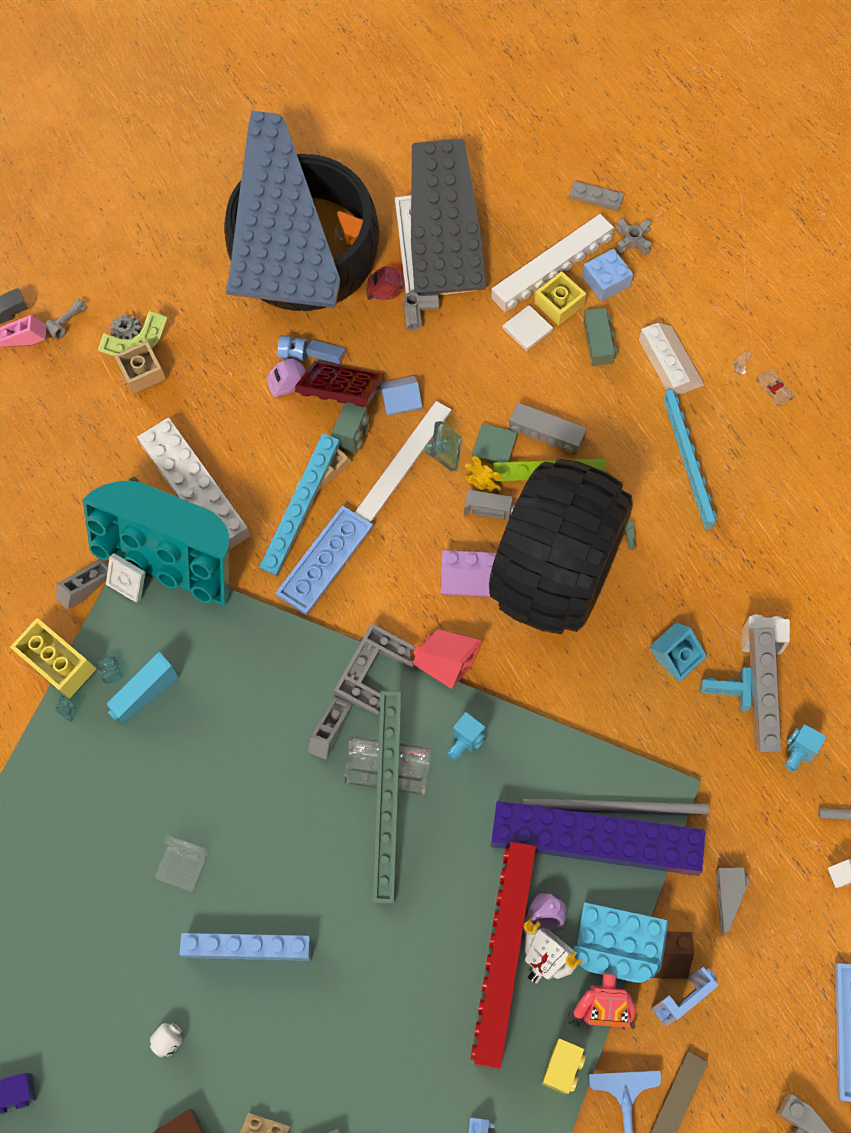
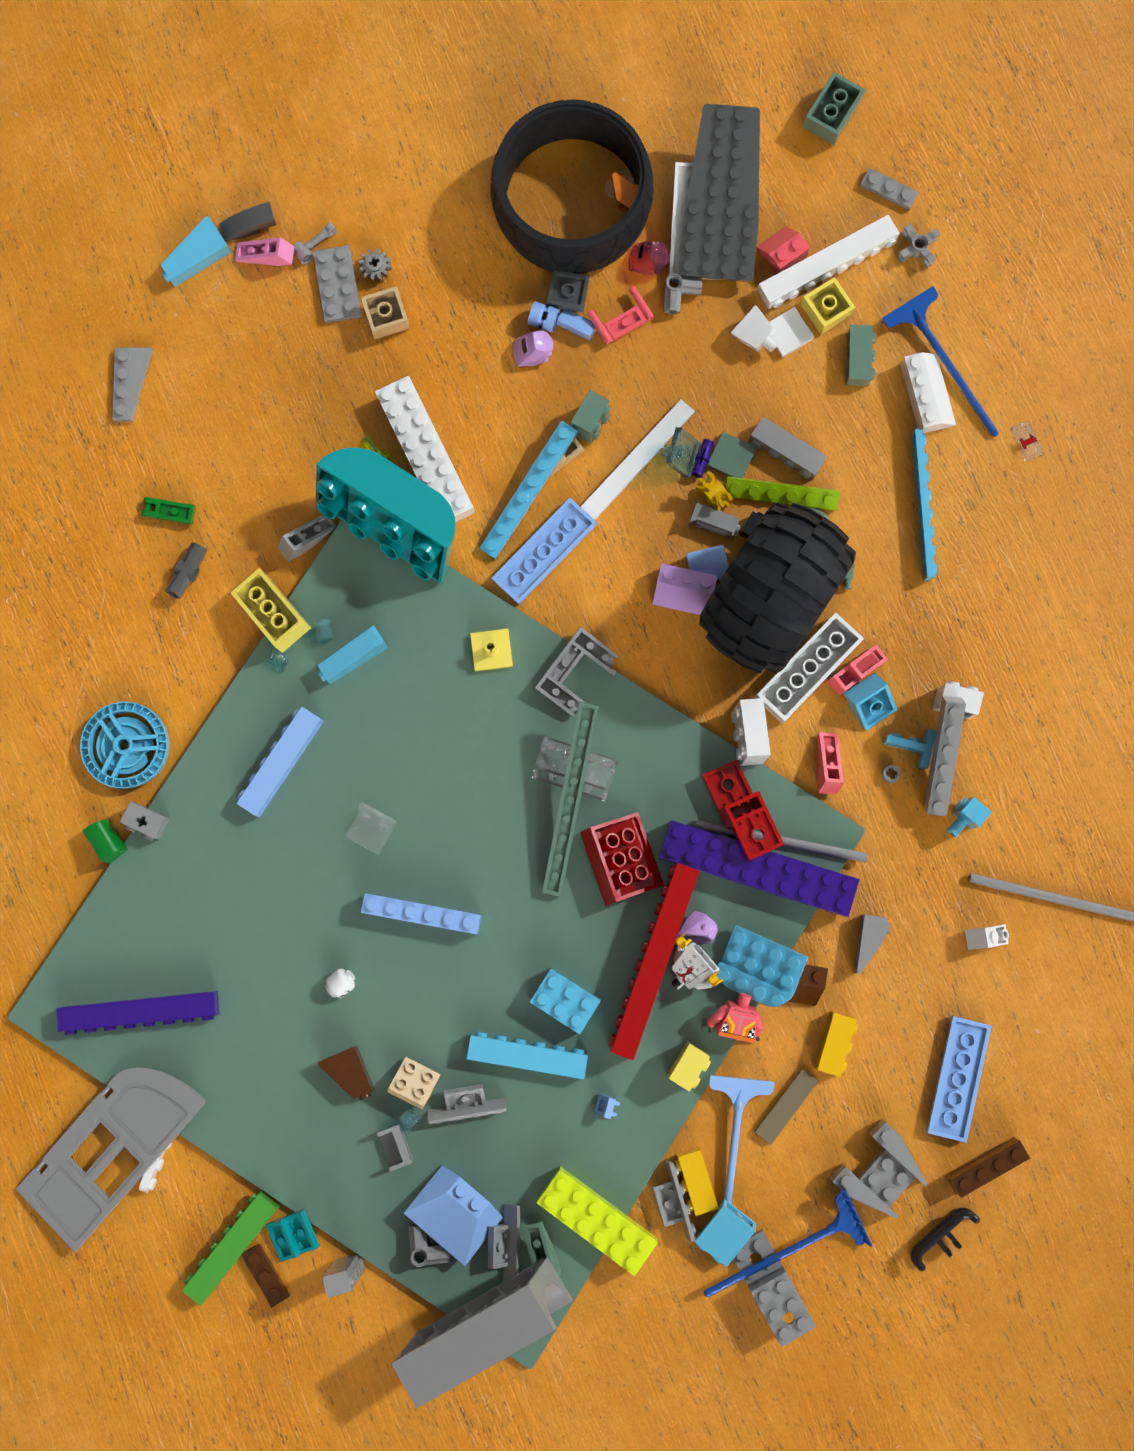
camera: 10 degrees right, 15 degrees up
(76, 811) = (279, 762): none -> light blue brick
(92, 364) = (337, 284): none -> light grey plate
(125, 578) = (348, 541): white tile -> none
(150, 332) = (399, 277): yellowish green plate -> none
(278, 234) = (547, 195): sand blue wing -> none
(284, 662) = (491, 650): none -> light yellow tile
(313, 323) = (568, 291): none -> dark grey plate
(329, 728) = (525, 722): light grey slope -> none
(339, 383) = (586, 367): dark red plate -> none
(371, 342) = (625, 322): none -> coral plate
(383, 1087) = (527, 1056): none -> medium azure brick
(401, 395) = (646, 386): light blue slope -> none
(415, 1017) = (565, 1001): none -> medium azure brick
(446, 656) = (647, 670): coral slope -> none
(451, 852) = (621, 858): none -> red slope
(466, 450) = (702, 458): none -> dark purple pin
(468, 735) = (655, 753): medium azure brick -> none
(485, 541) = (708, 561): none -> light blue slope
(496, 330) = (755, 331): none -> white torso
(509, 258) = (783, 249): none -> coral slope
(532, 137) = (833, 108): none -> sand green brick
(562, 699) = (751, 732): none -> white brick
(569, 778) = (742, 810): none -> red bracket
(607, 275) = (882, 286): light blue brick -> none
(608, 628) = (809, 667): none -> white brick
(643, 292) = (914, 313): none -> blue piece
(649, 721) = (829, 766): none -> coral slope
(658, 623) = (857, 670): none -> coral slope
(667, 1009) = (811, 1031): light blue window -> none
(711, 725) = (895, 769): none -> light grey bush
(719, 1018) = (836, 1044): none -> yellow brick
(739, 363) = (997, 408): clear arm -> none

